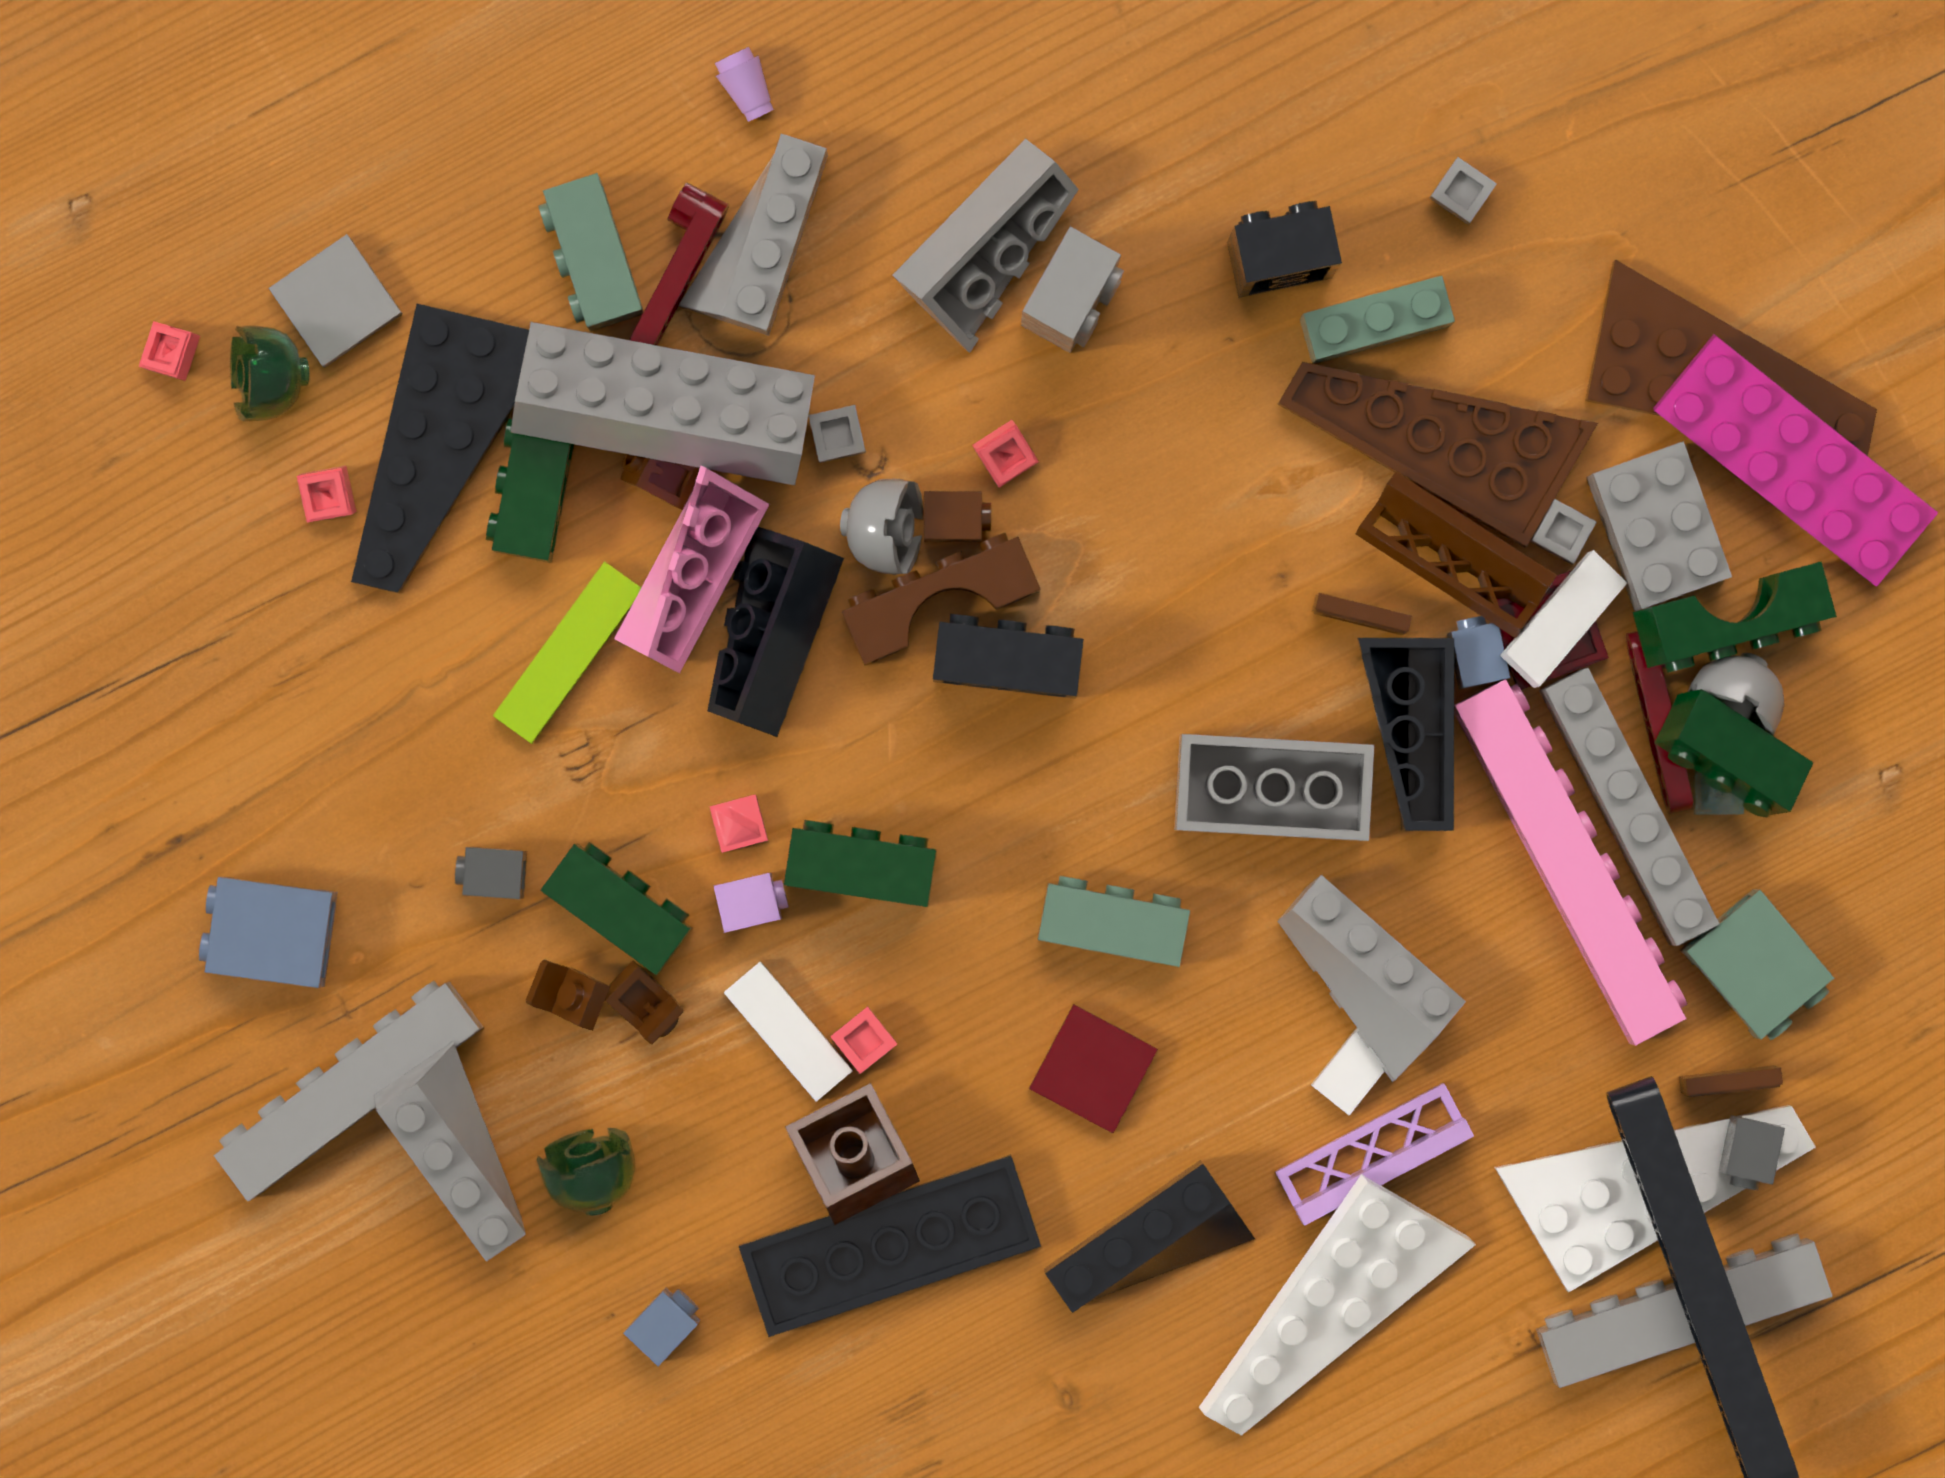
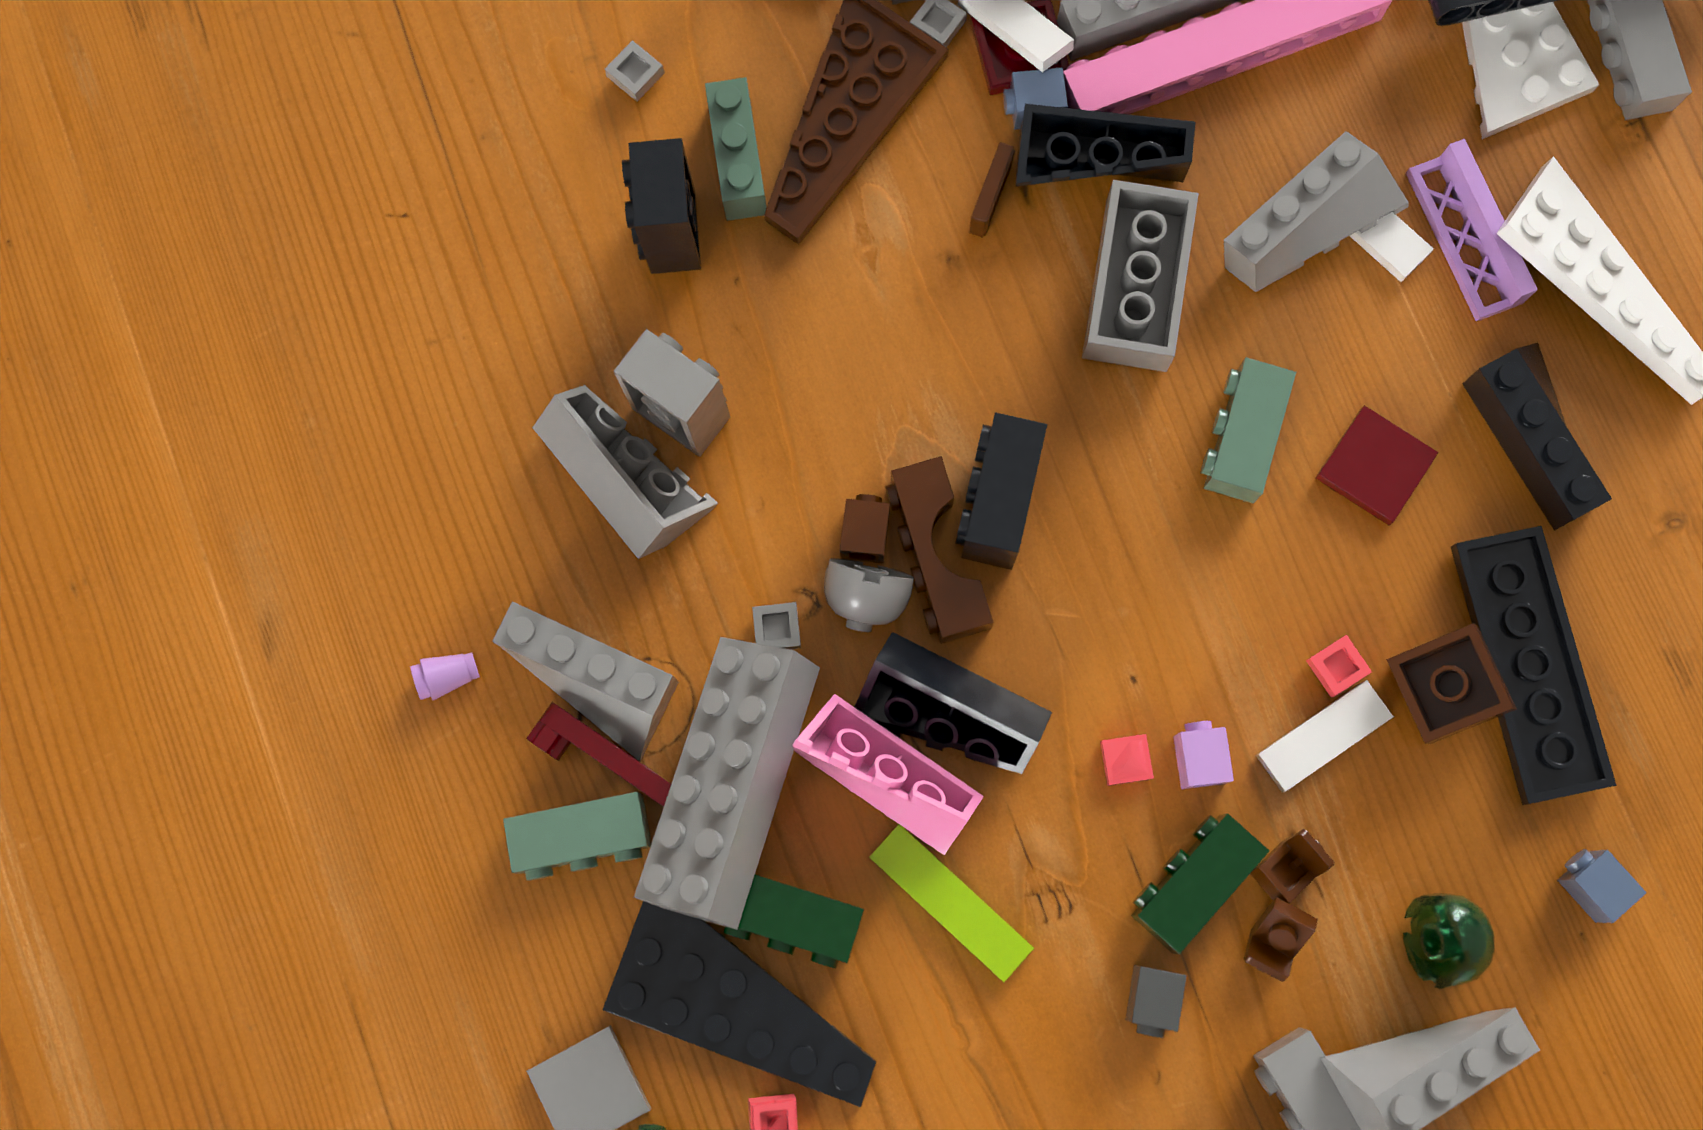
camera: 75 degrees left, 10 degrees down
(661, 478) = (799, 792): reddish brown bracket -> none
(860, 864) = (1181, 645): dark green brick -> none
(1005, 453) = (813, 479): coral tile -> none
(1461, 548) = (943, 100): reddish brown fence -> none

